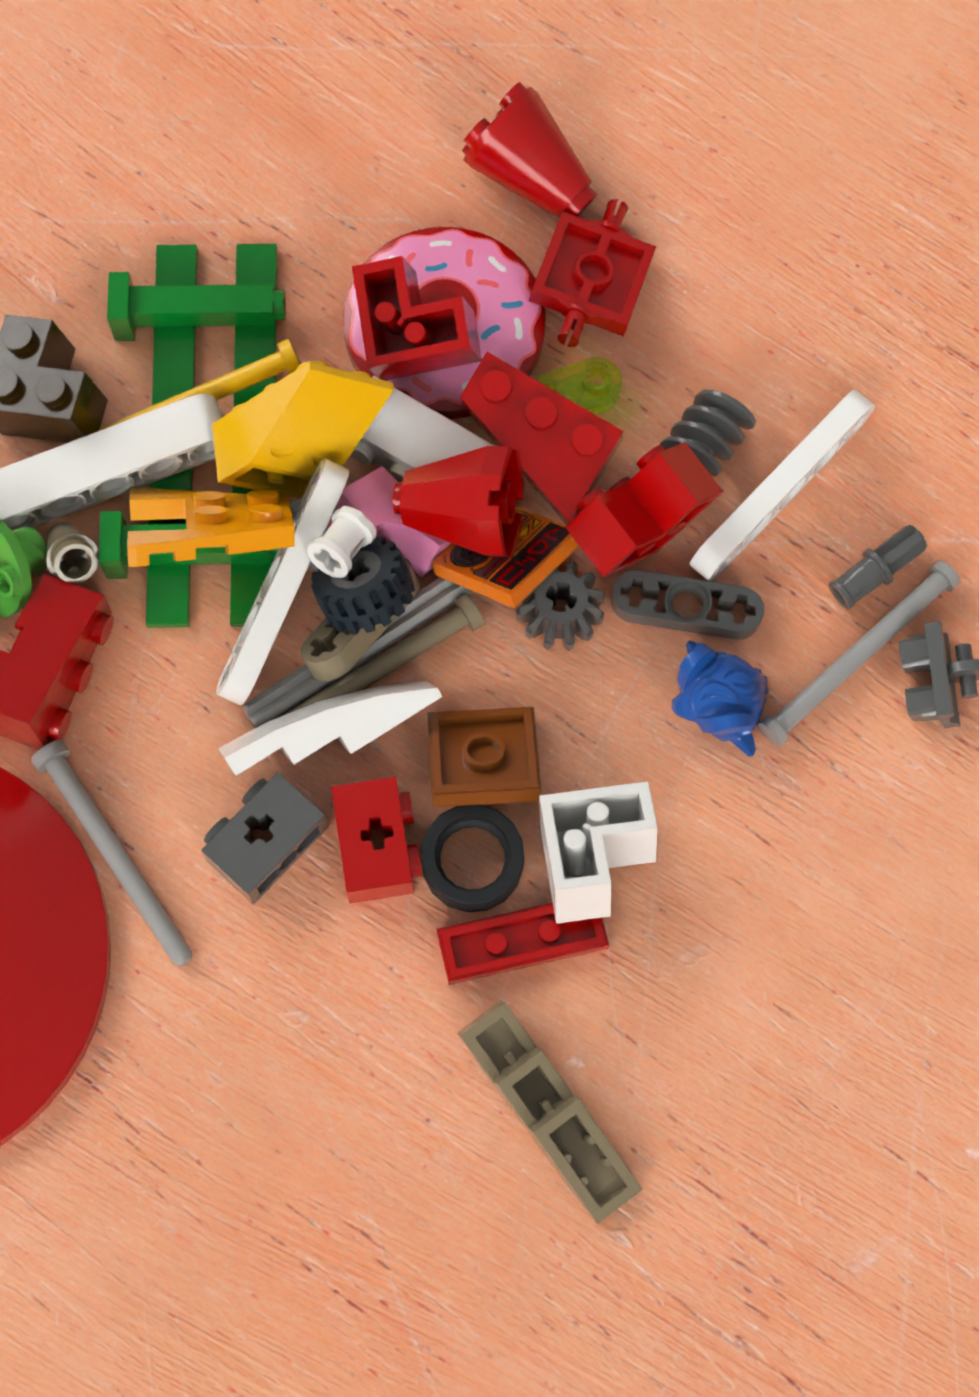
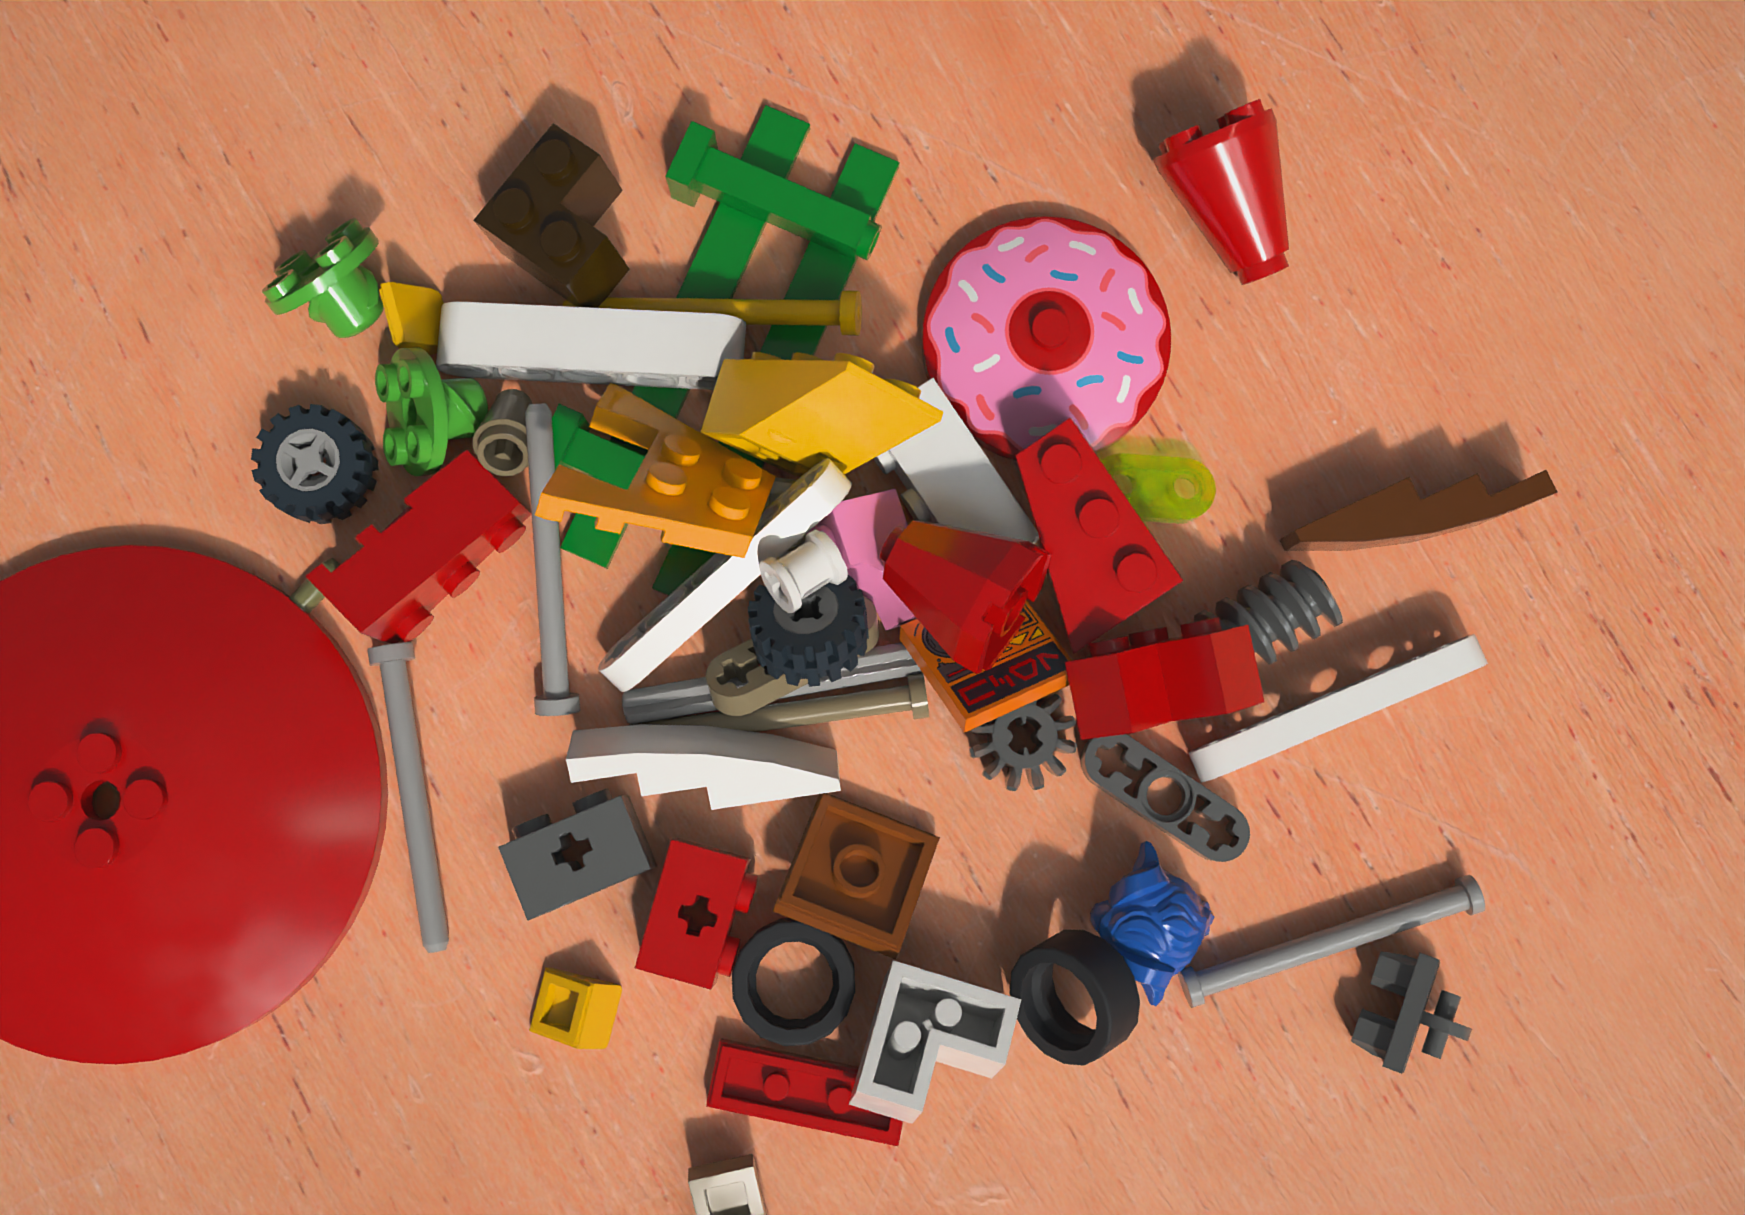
camera: 20 degrees right, 10 degrees up
(145, 633) = (541, 463): none -> light grey bar
(313, 957) = (575, 1009): none -> yellow slope
(401, 332) = (982, 341): red brick -> none
(592, 273) = (1239, 360): red plate -> none
(715, 747) = (1104, 977): none -> black tyre
(763, 333) = (1401, 517): none -> reddish brown slope
(878, 566) = (1400, 851): dark grey axle -> none

